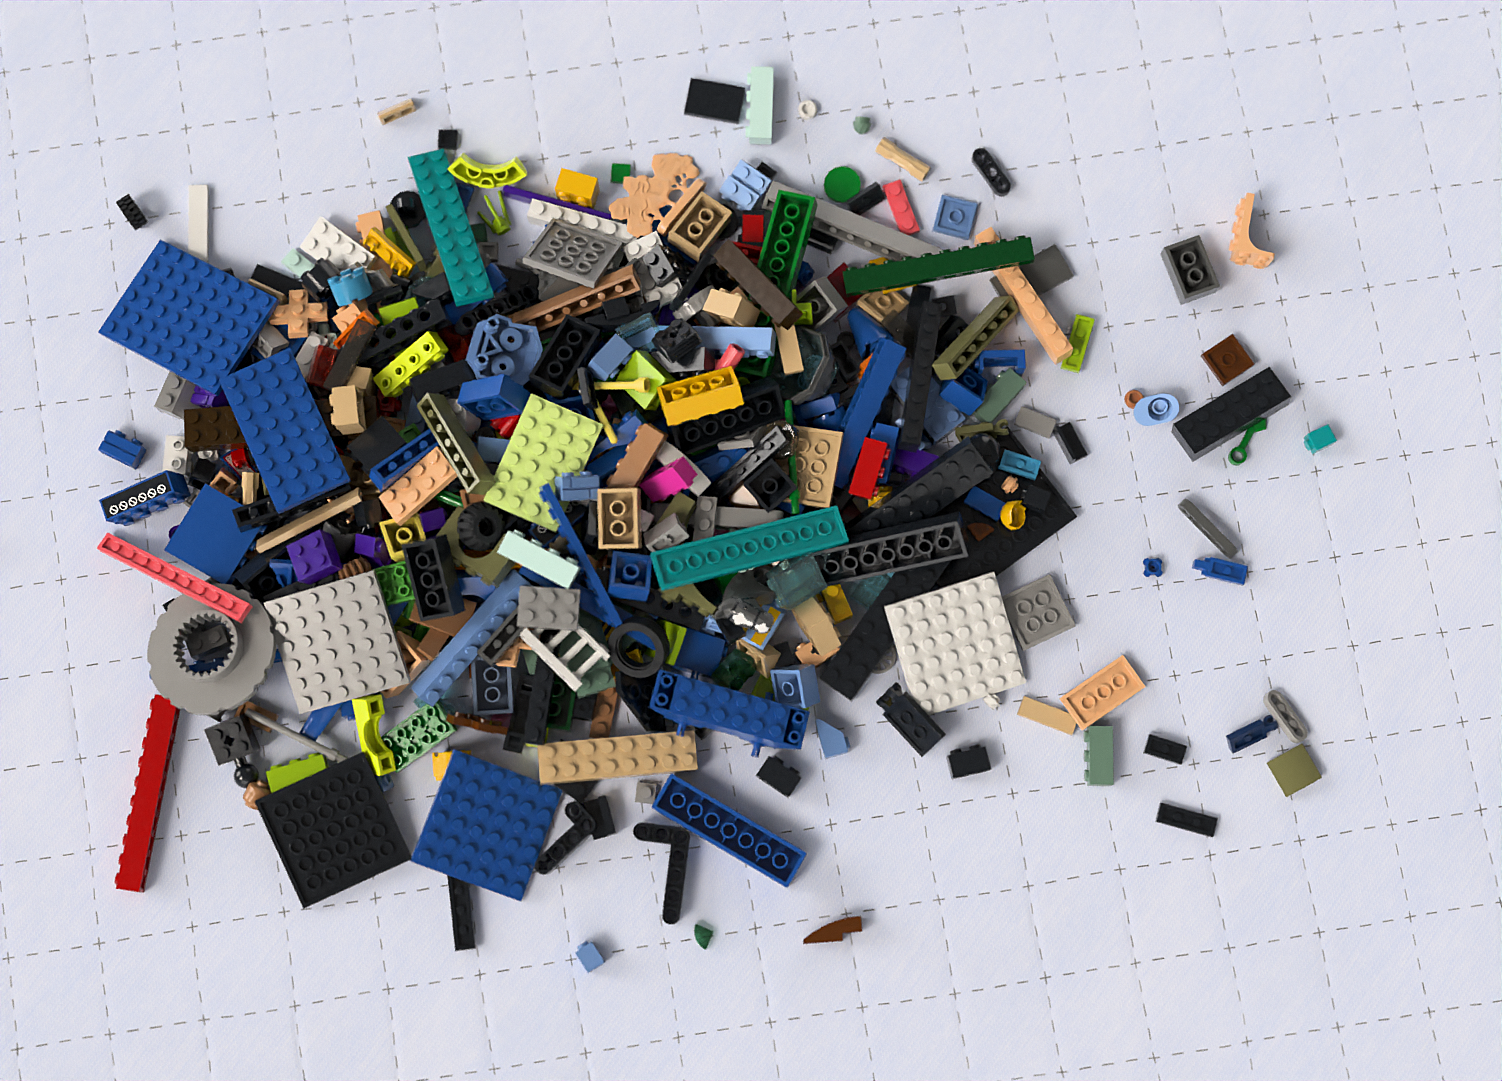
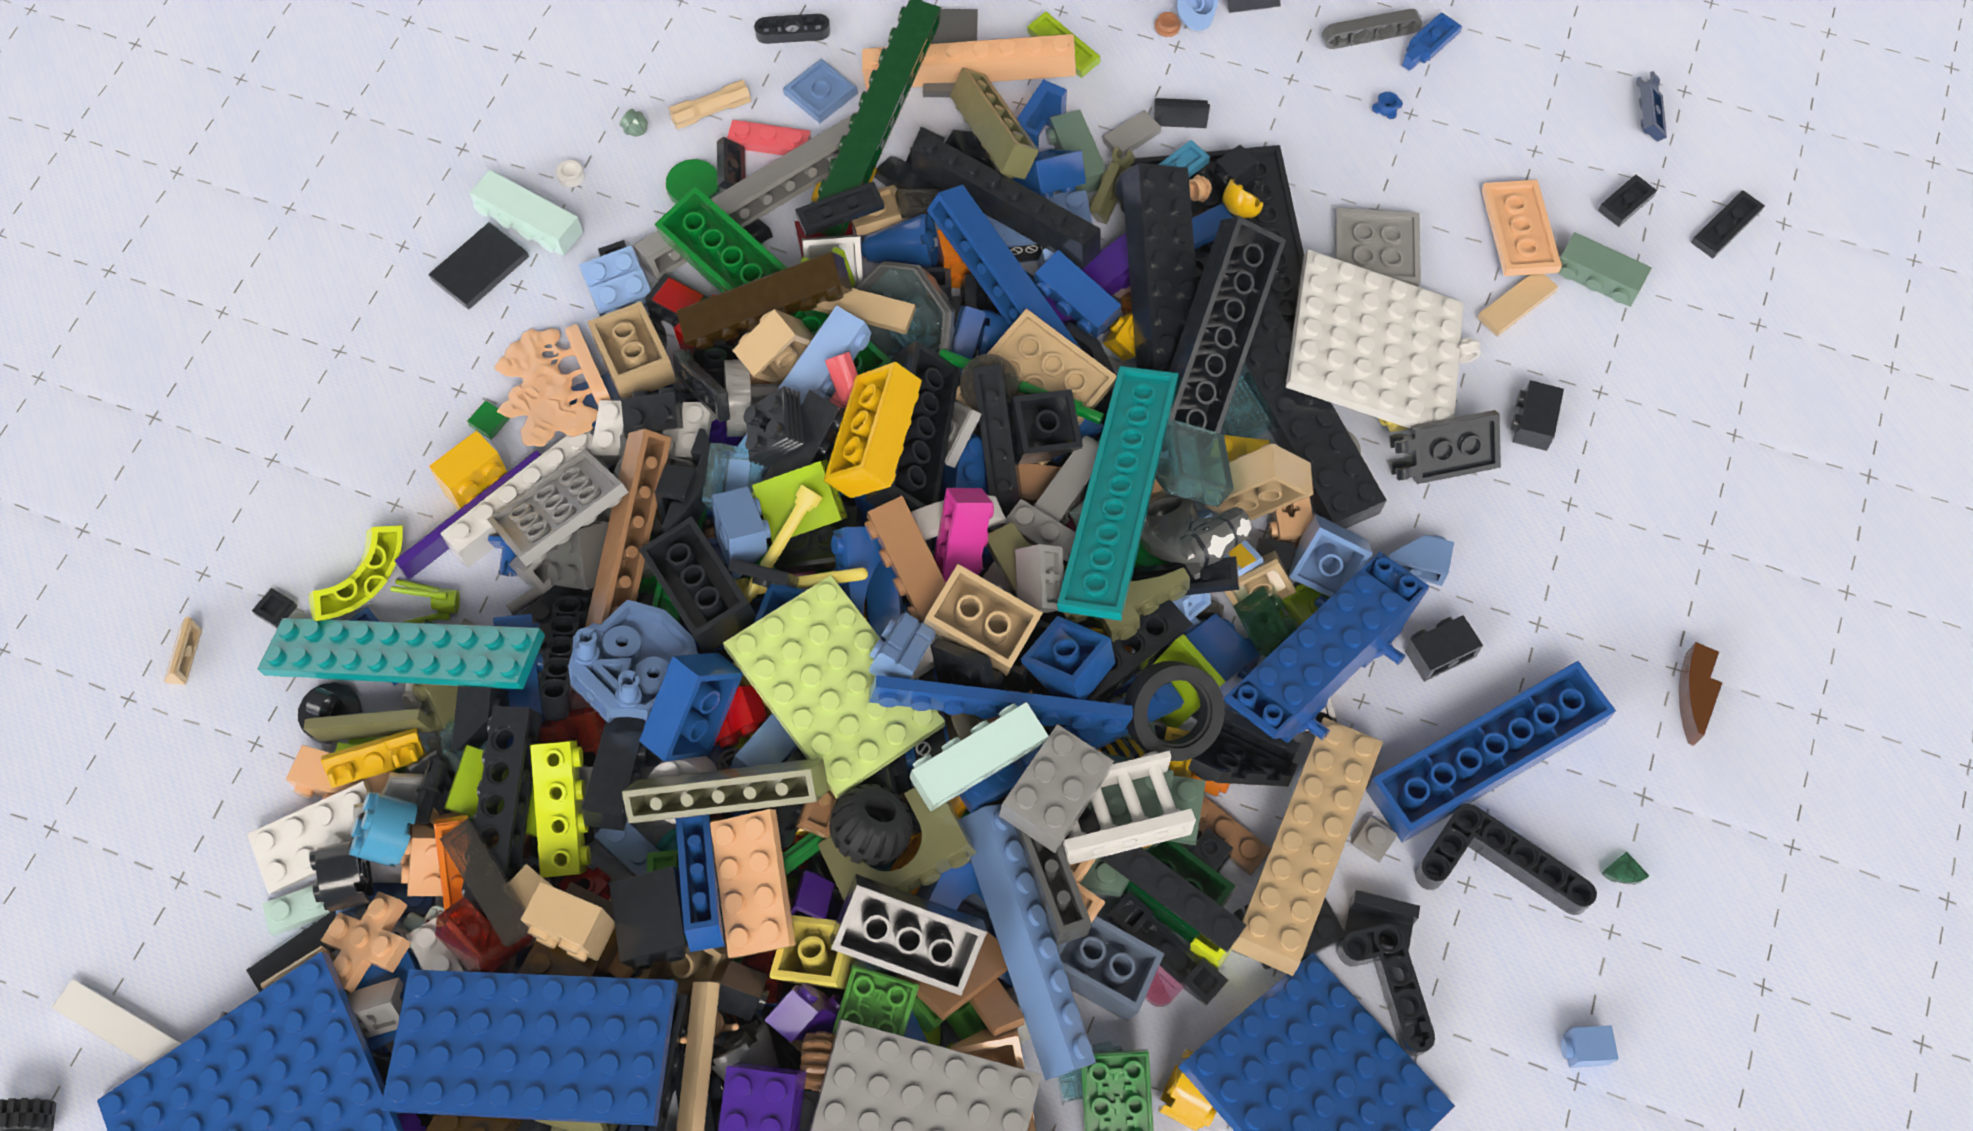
camera: 60 degrees left, 15 degrees down
(477, 723) = (1153, 1012): reddish brown plate -> none
(855, 286) = (839, 208): none -> black tile
(869, 469) = (1092, 308): red brick -> none
(1285, 716) = (1642, 64): light grey plate -> none
(1294, 770) = (1718, 88): olive slope -> none

